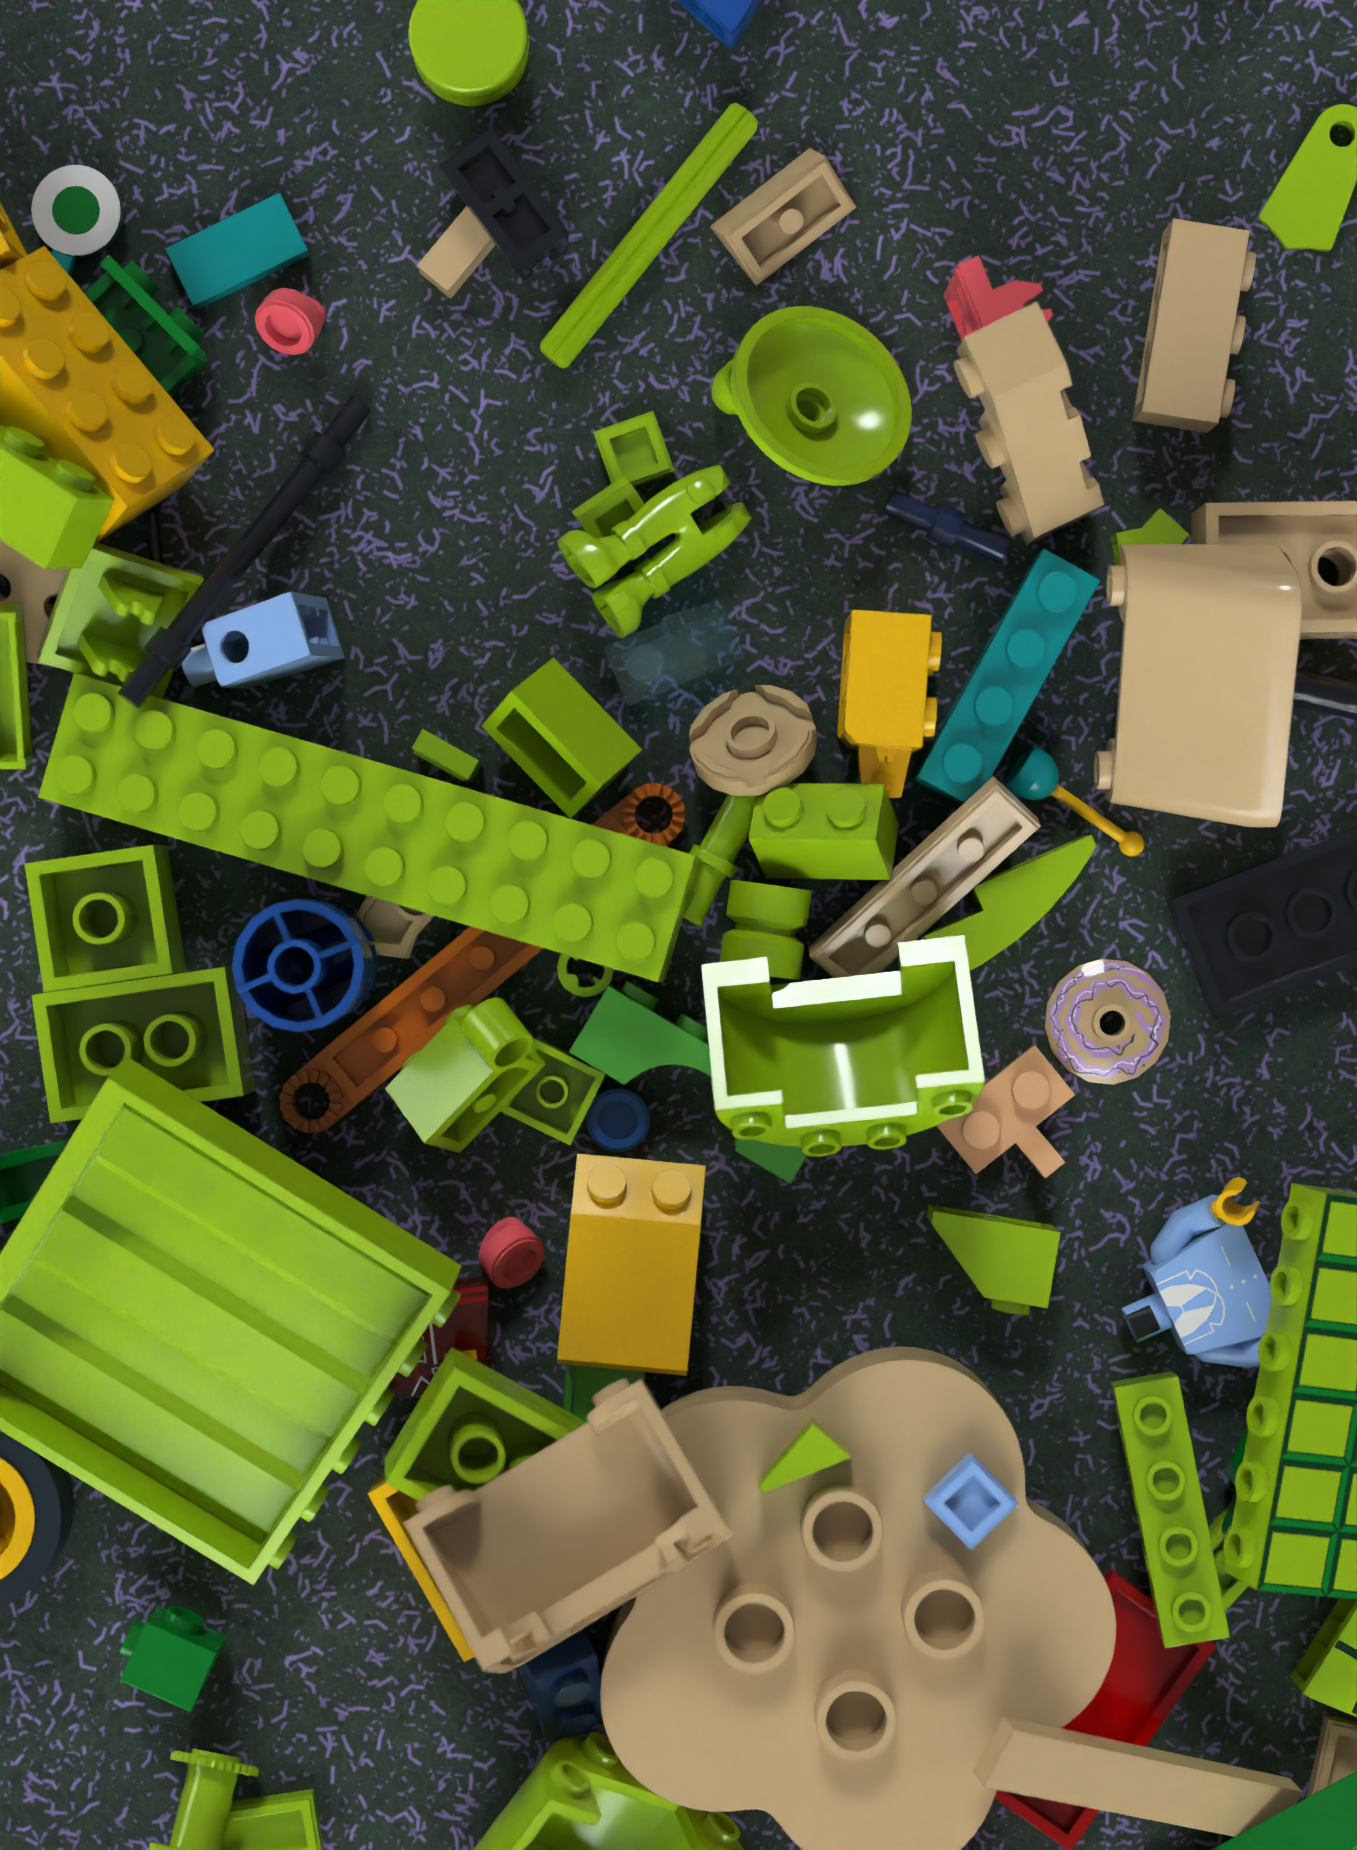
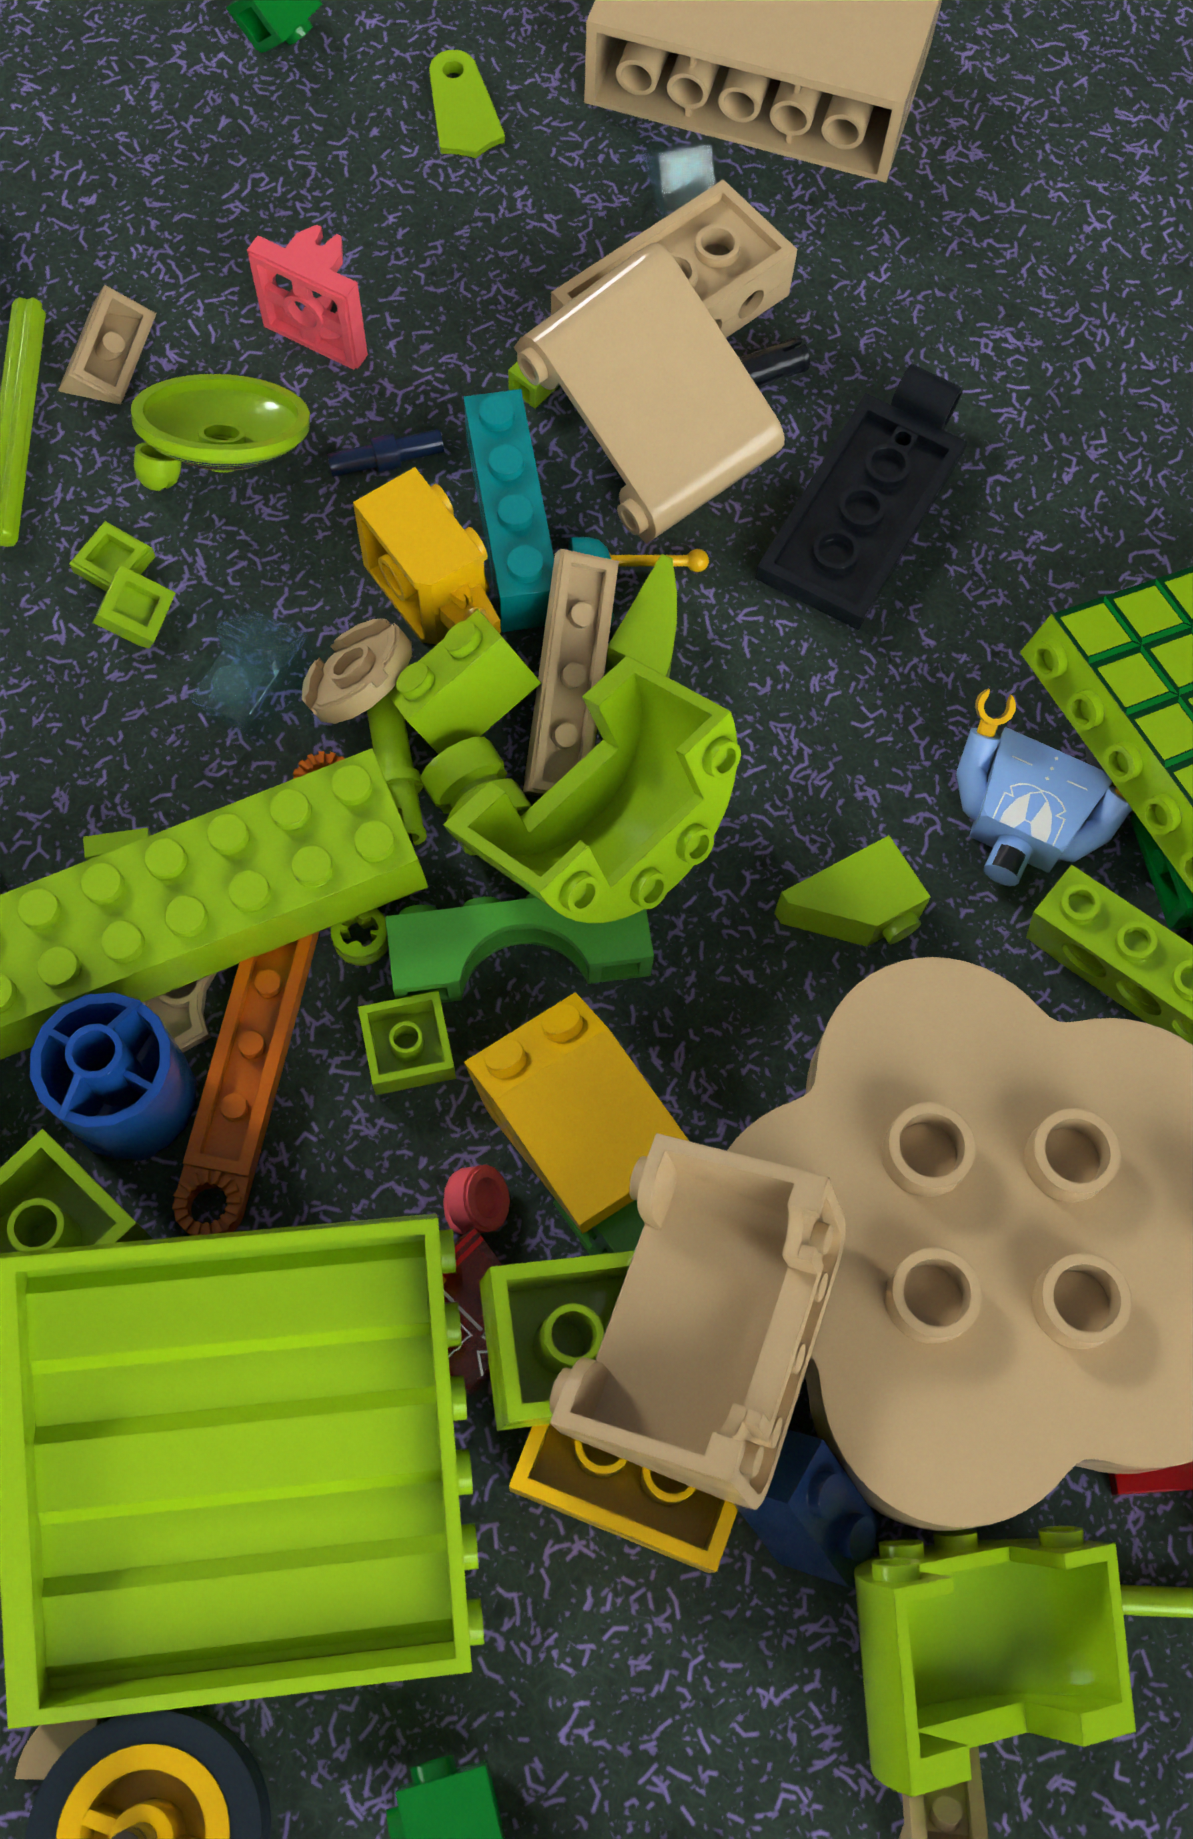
camera: 40 degrees left, 20 degrees down
(465, 1074) = (322, 1065): lime hinge -> none
(561, 737) = (199, 767): lime piece -> none
(618, 1119) = (476, 1026): blue tile -> none
(666, 513) = (178, 654): lime piece -> none
(808, 1453) = (847, 1105): lime piece -> none
(970, 1500) = (1008, 1046): light blue tile -> none
(1009, 1113) = (774, 800): light nougat plate -> none
(1029, 424) = (386, 316): tan brick -> none
(1075, 1017) = (786, 710): dish -> none
(1194, 326) = (451, 225): tan brick -> none

